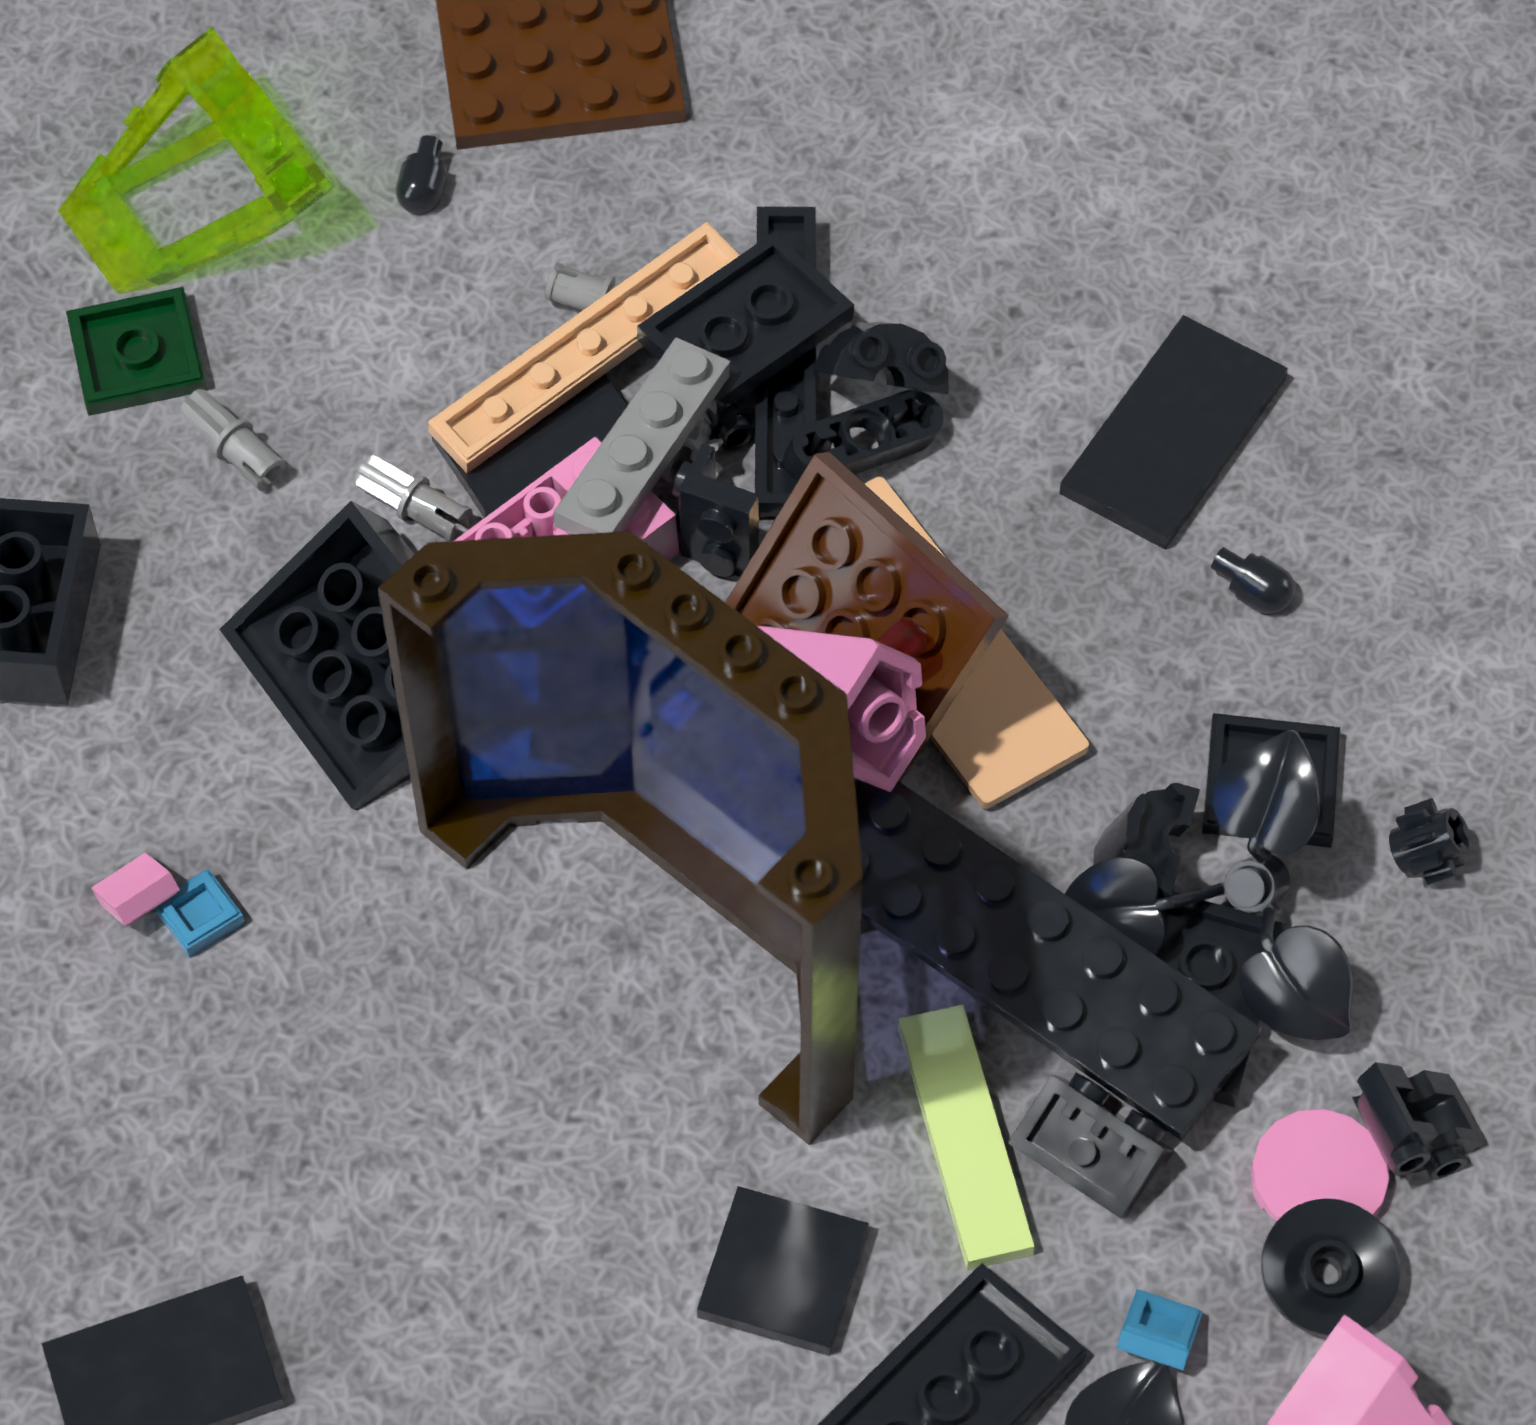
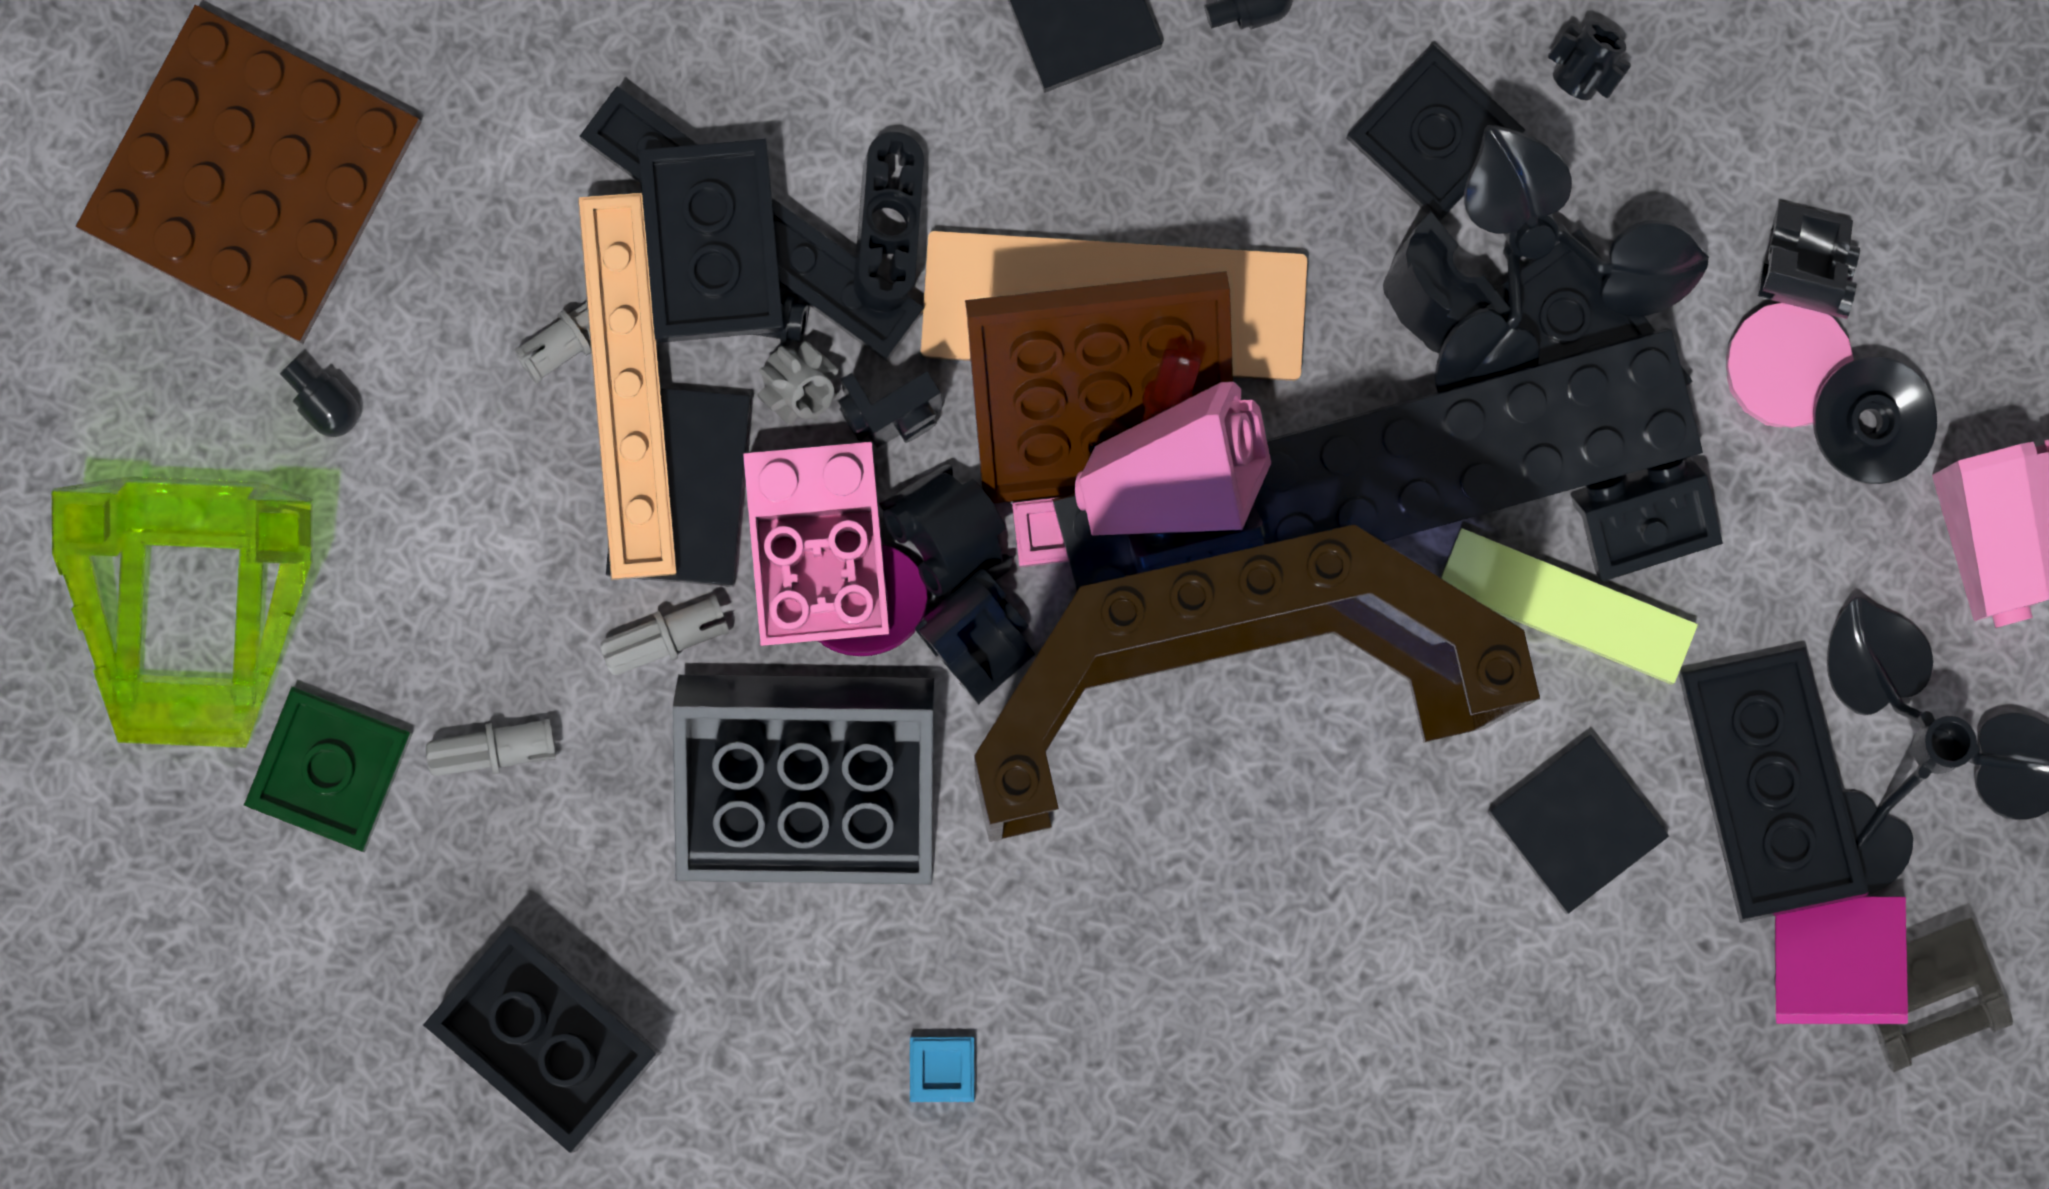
camera: 60 degrees left, 25 degrees up
(135, 889) = (890, 1109): bright pink tile -> none
(643, 441) = (791, 423): light grey plate -> none
(900, 351) = (824, 154): black cylinder -> none
(1159, 1329) = (1828, 582): dark azure tile -> none

